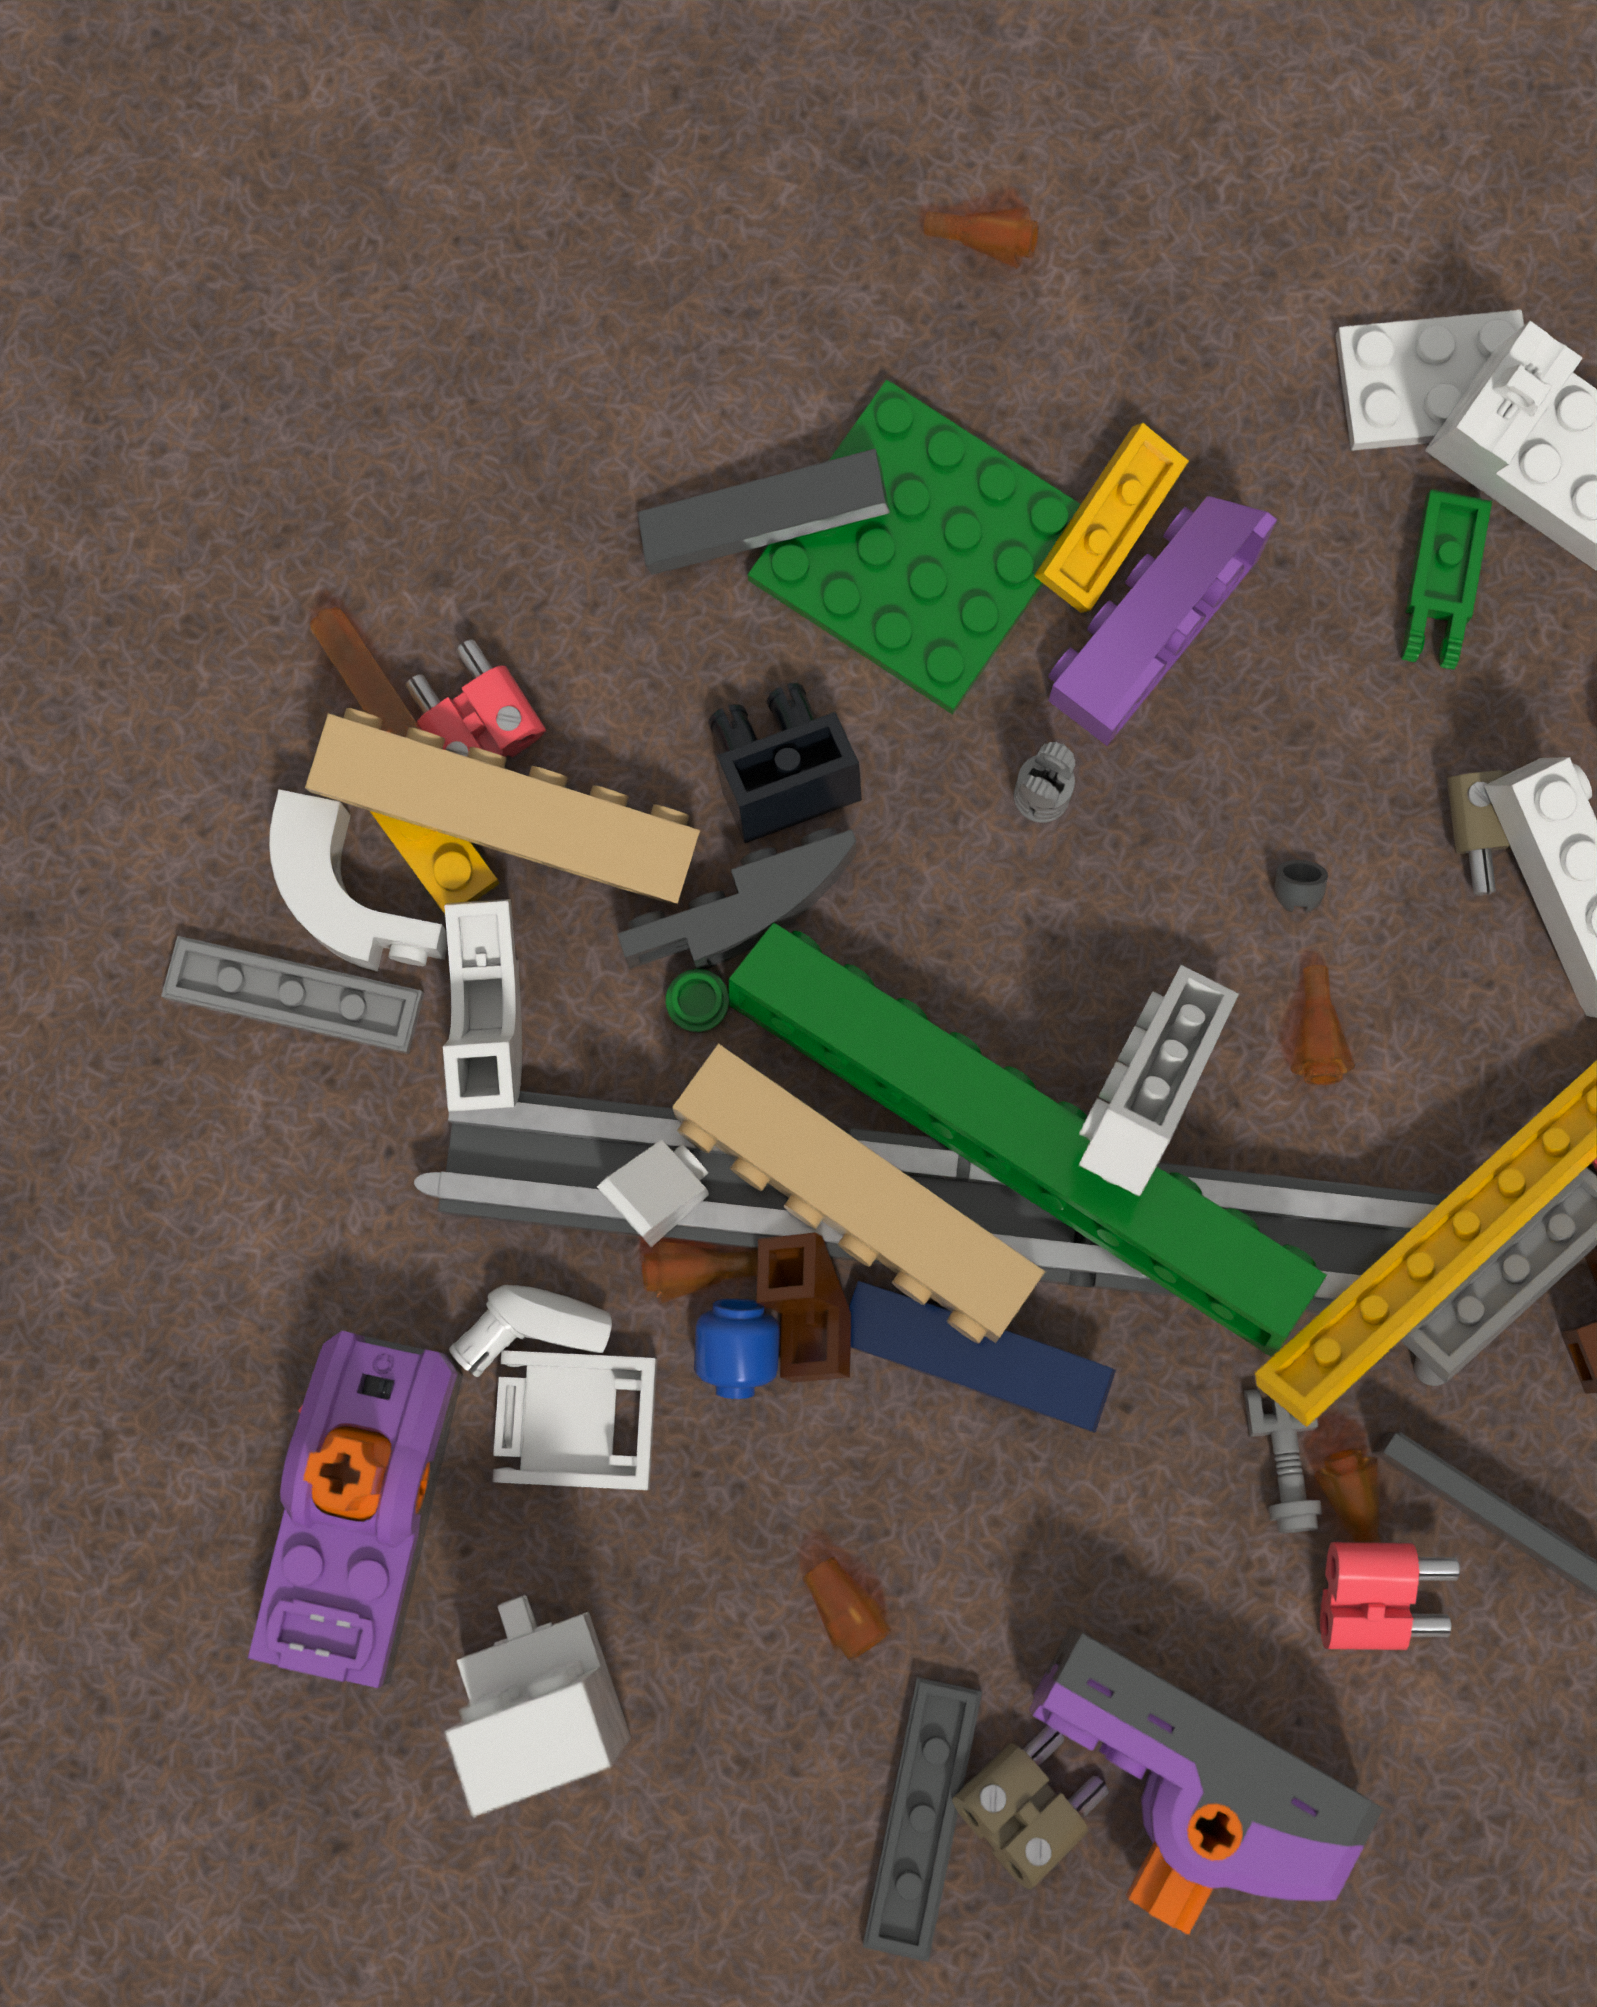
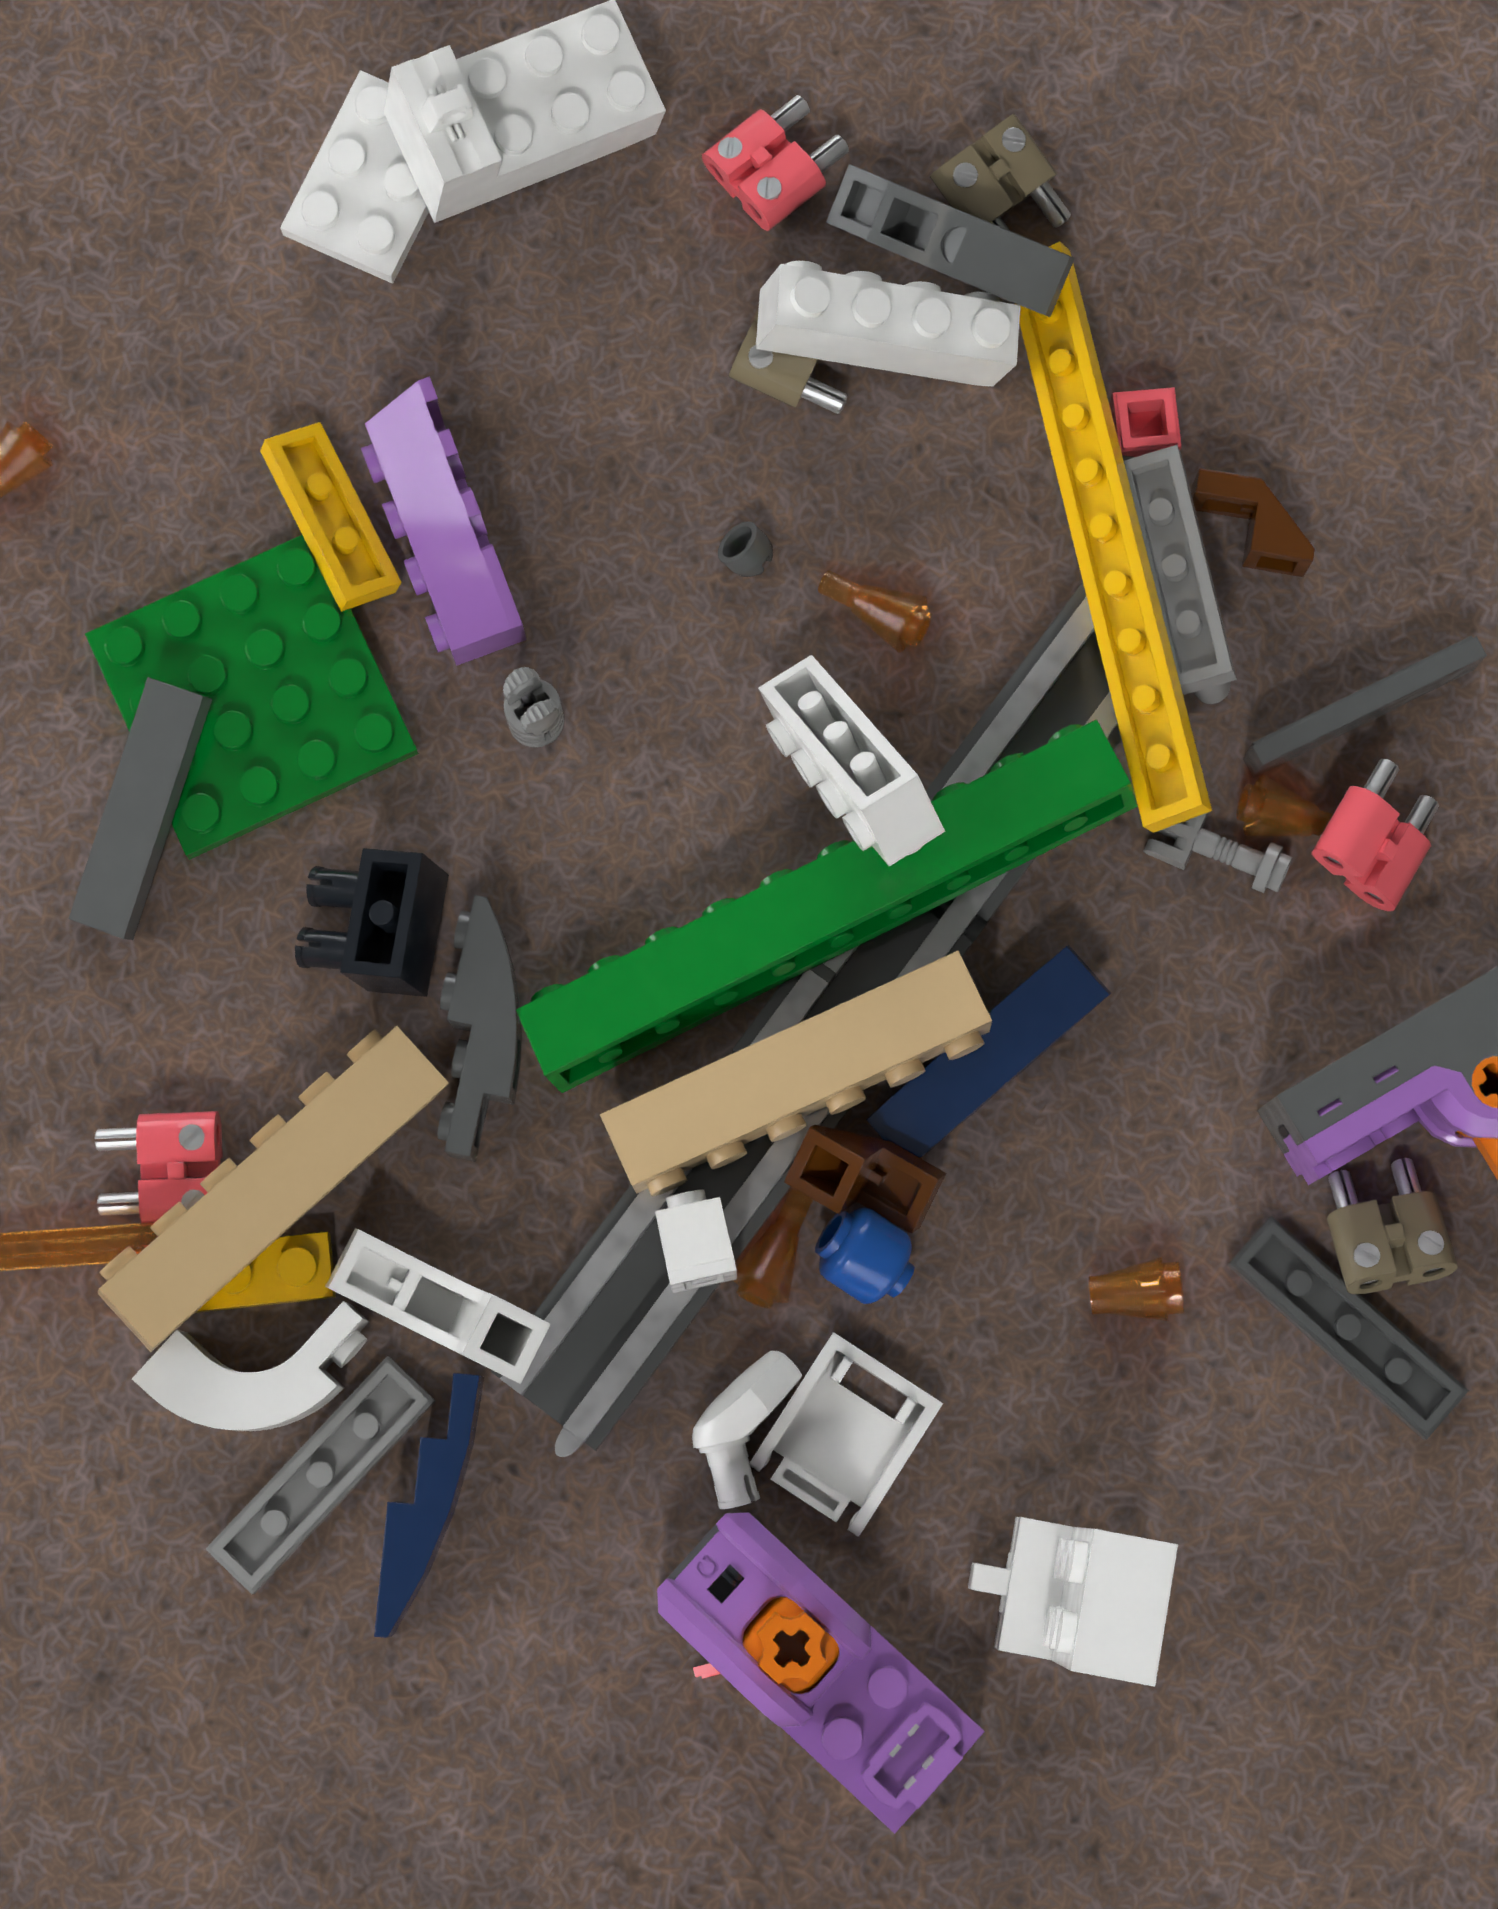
camera: 65 degrees left, 0 degrees up
(291, 1101) = (418, 1528): none -> dark blue slope
(697, 1000) = (540, 1118): green plate -> none
(1446, 571) = (550, 270): green hinge -> none

